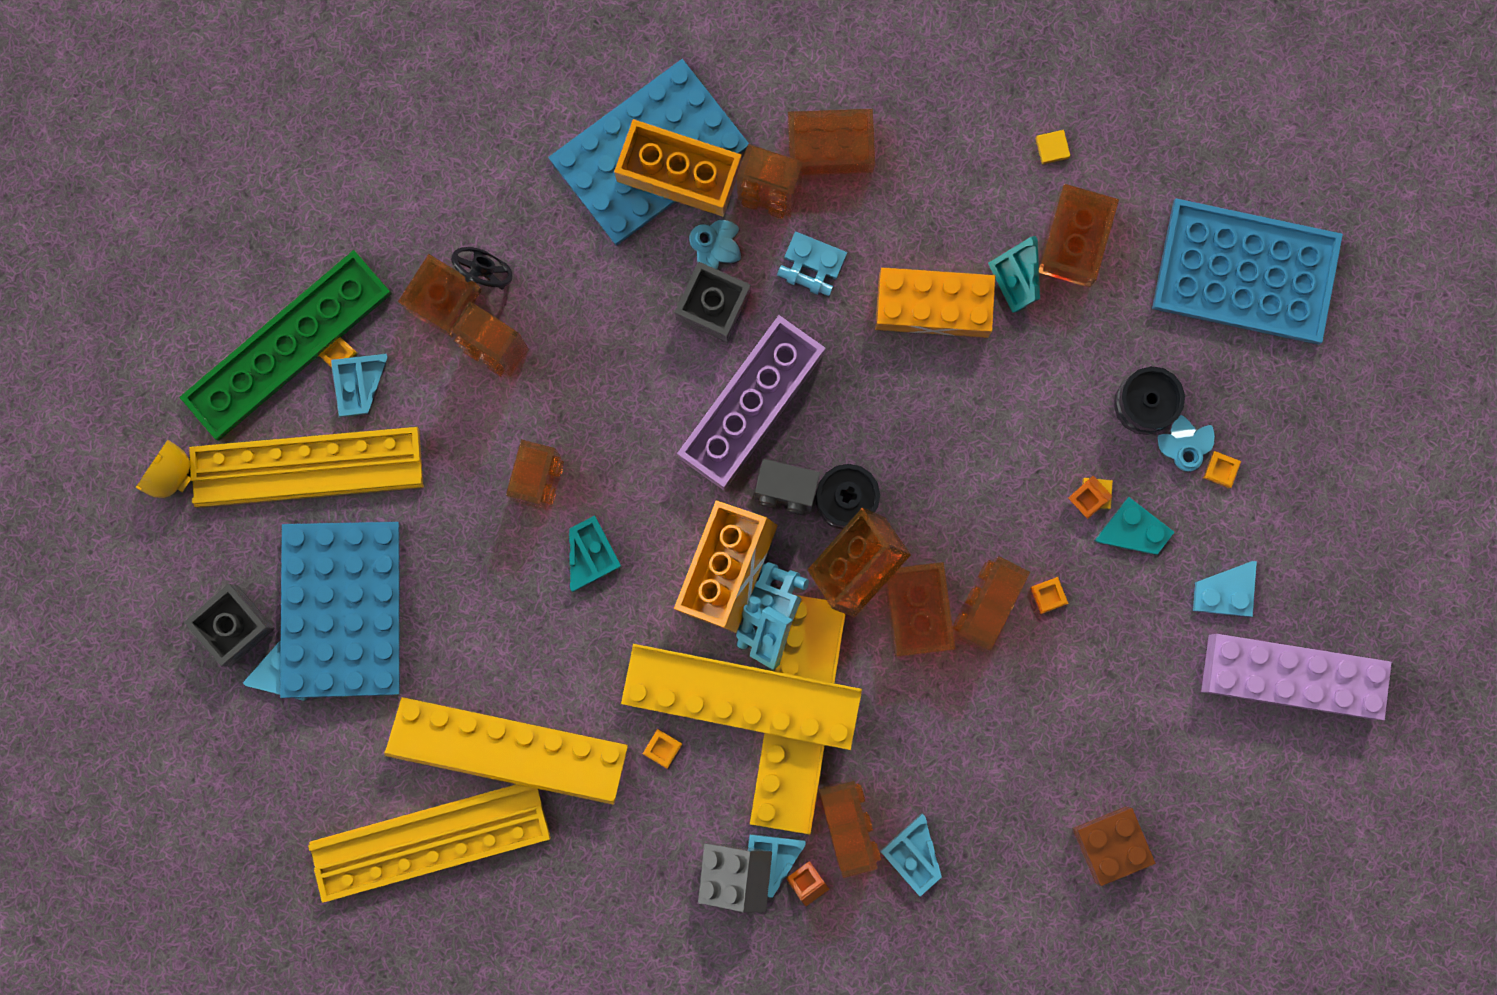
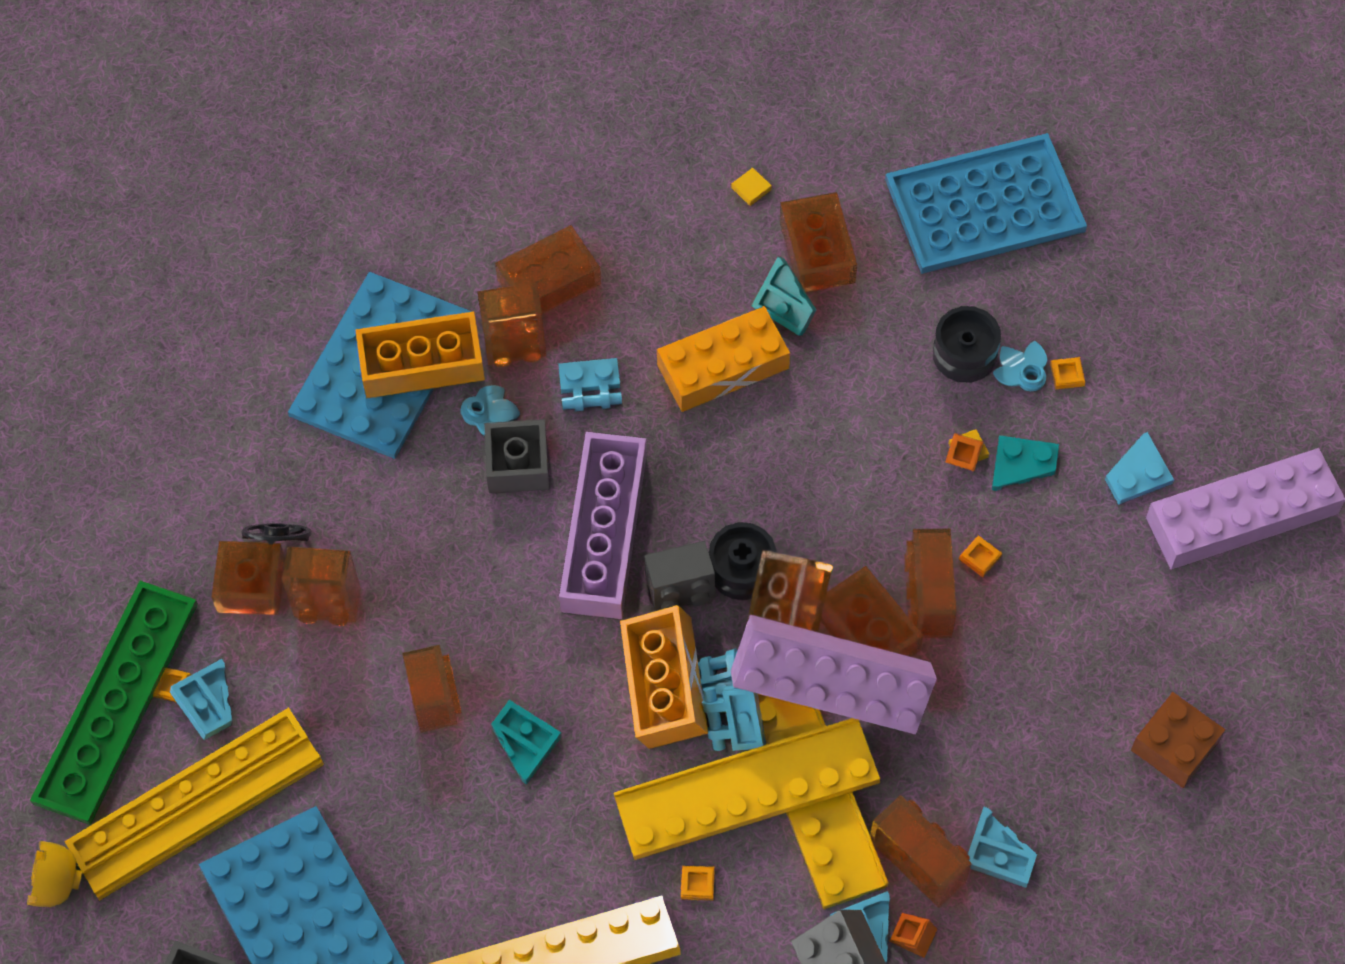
camera: 30 degrees left, 20 degrees down
(858, 647) = (833, 674): none -> lavender brick

